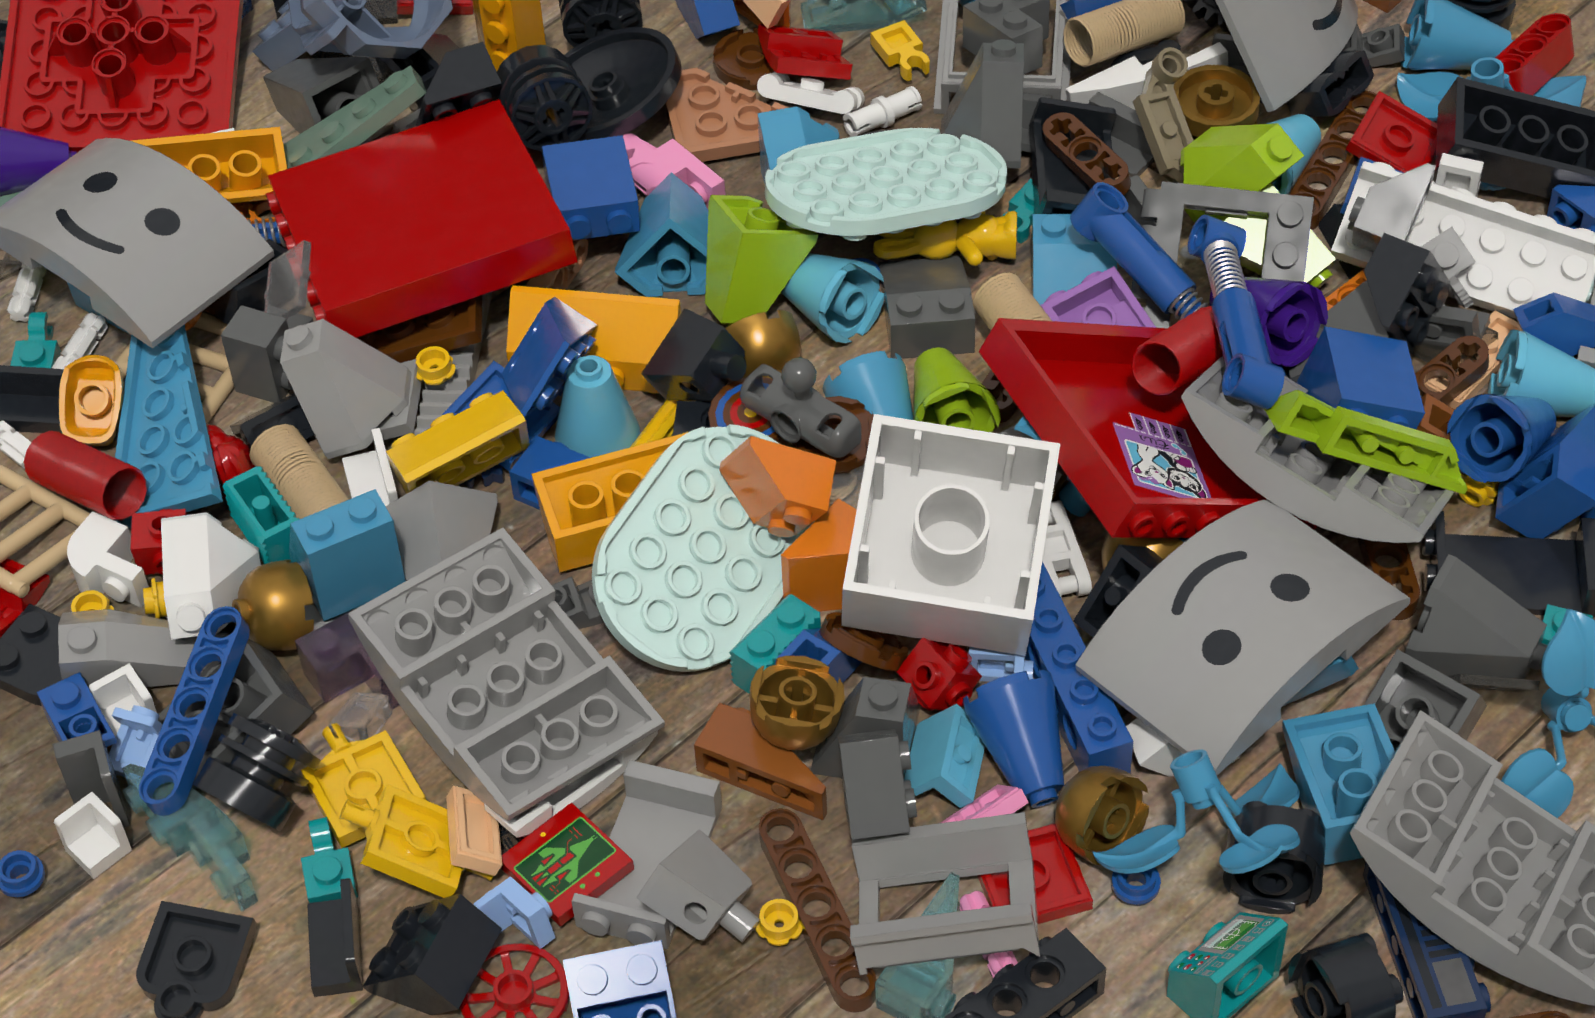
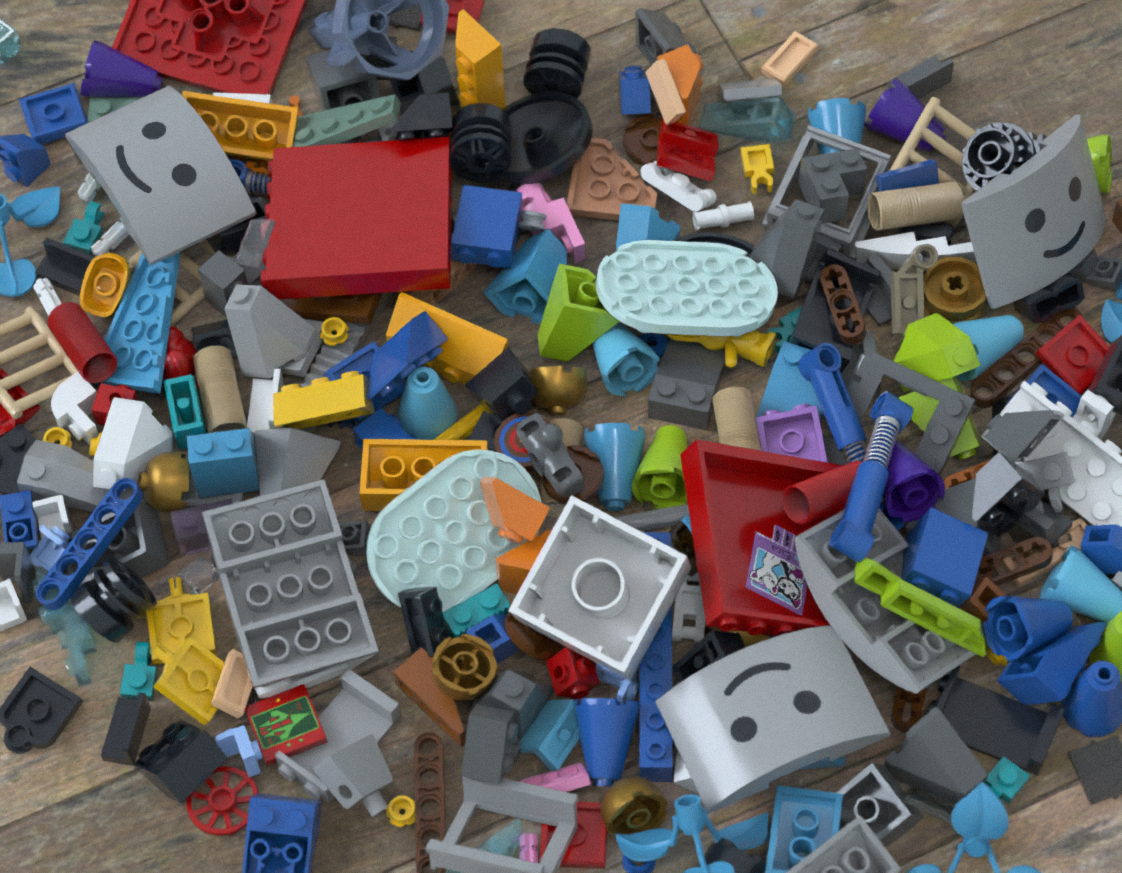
camera: 20 degrees right, 10 degrees up
(647, 169) = (532, 221): none -> light grey bush
(709, 666) = (423, 618): none -> black bracket

